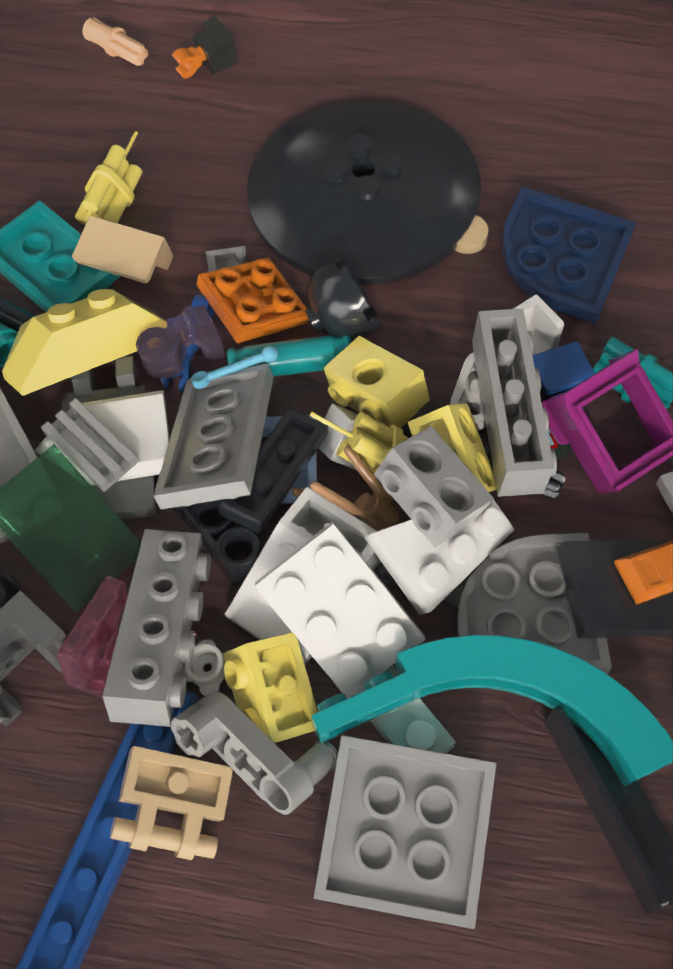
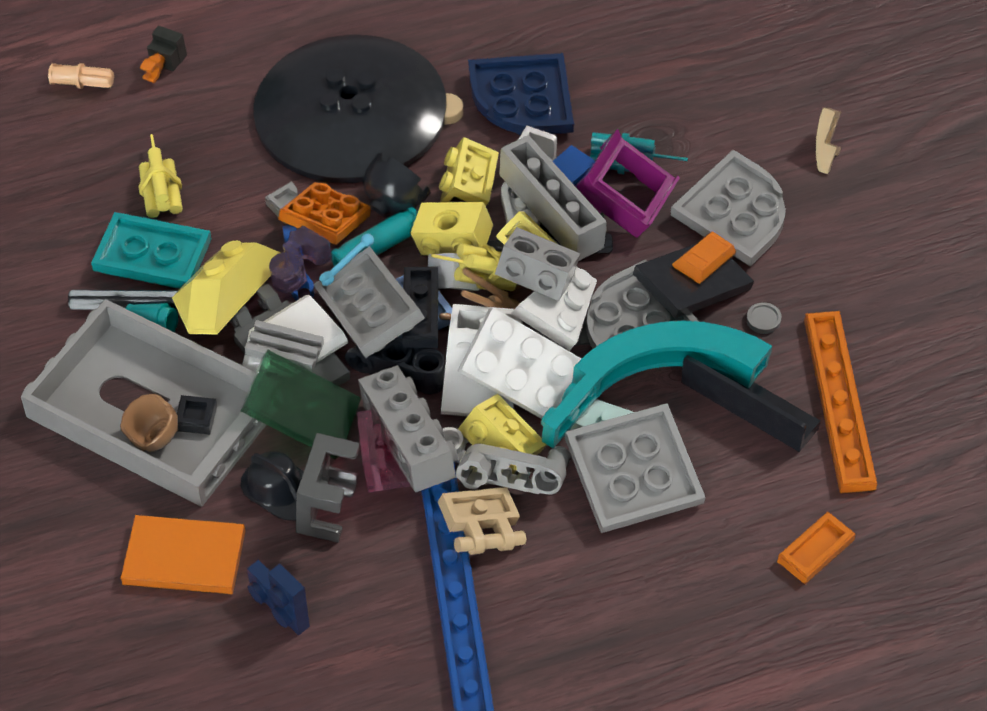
camera: 30 degrees left, 10 degrees down
(121, 250) = (205, 219): tan panel -> none
(442, 323) = (469, 172): none -> light yellow bracket

